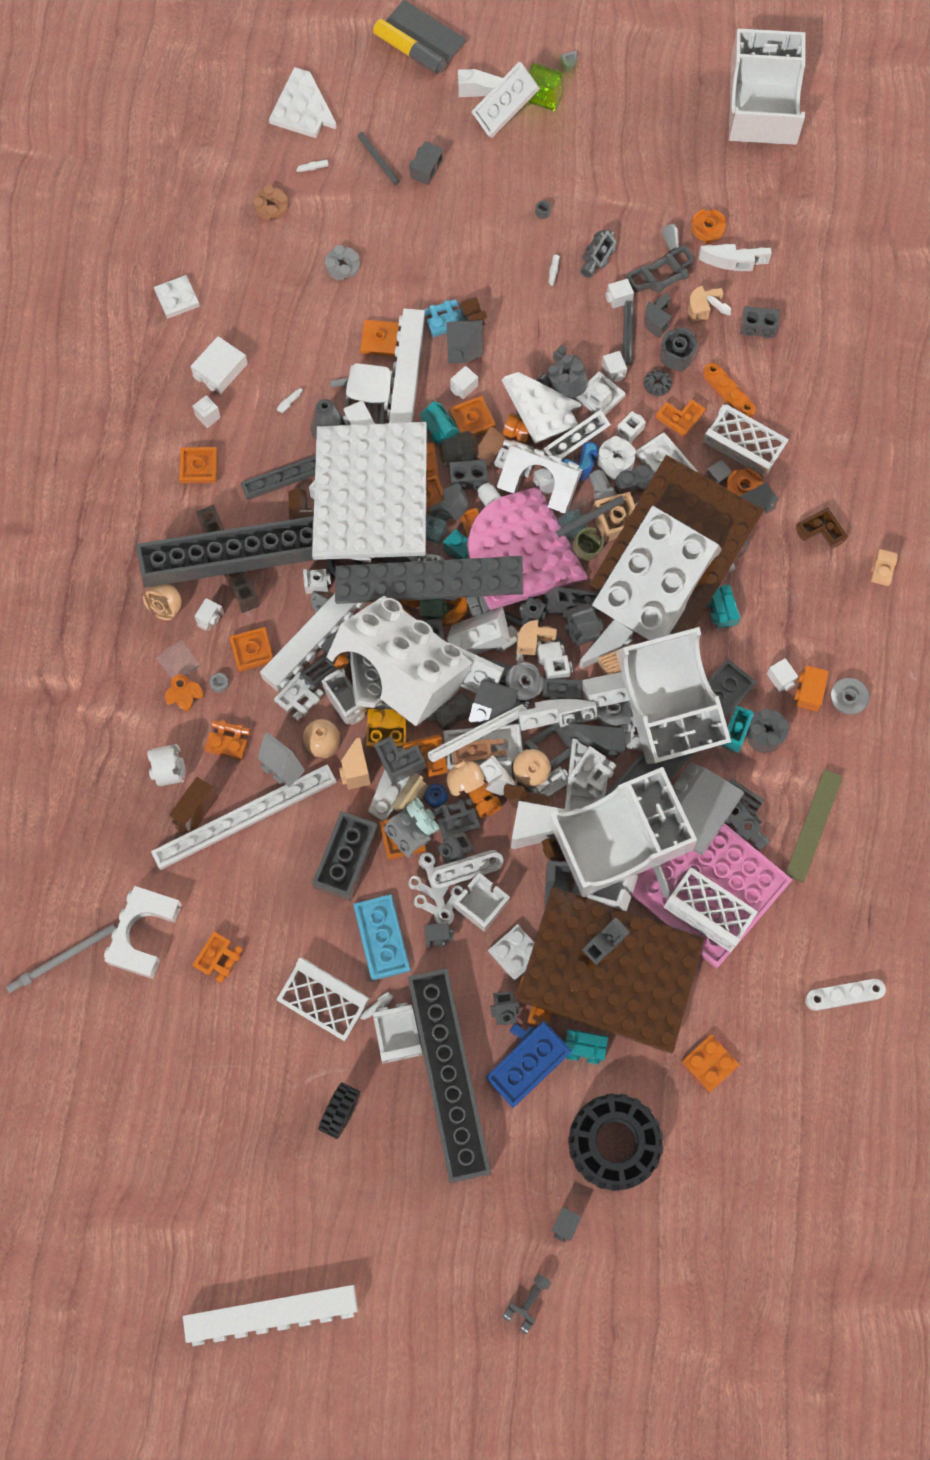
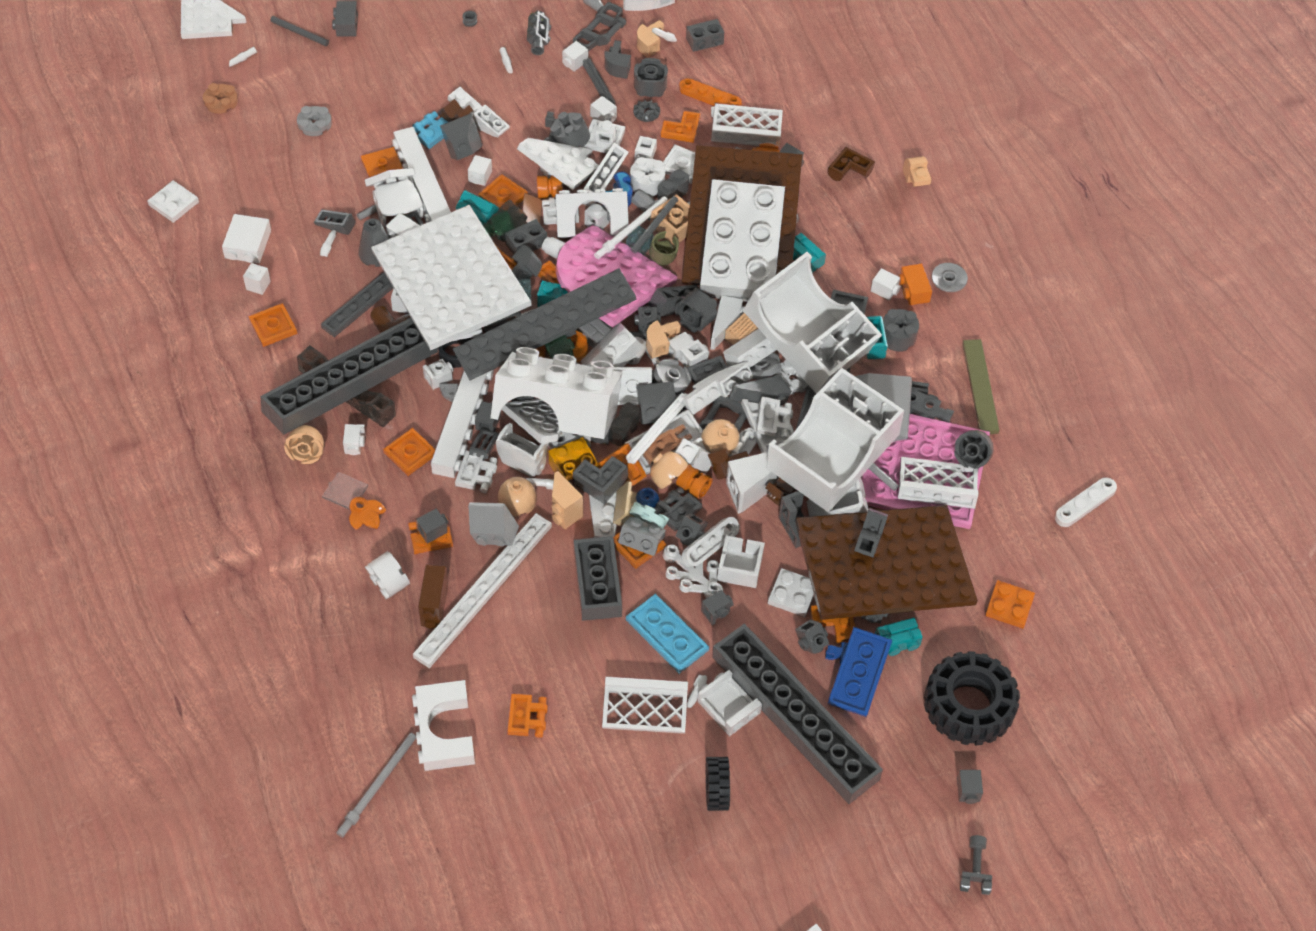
camera: 30 degrees left, 15 degrees down
(219, 682) = (394, 492): light grey tile -> none
(228, 736) = (432, 525): none -> dark grey brick
(312, 389) = (344, 226): none -> dark grey slope
(342, 661) = (503, 420): orange plate -> none
(352, 734) = (548, 483): none -> white piece
(373, 359) = (389, 177): none -> white plate
(446, 454) = (501, 224): none -> clear green plate
(495, 321) = (483, 116): none -> white slope
(535, 520) = (610, 245): none -> white bar
(761, 895) = (973, 449): none -> dark grey cylinder

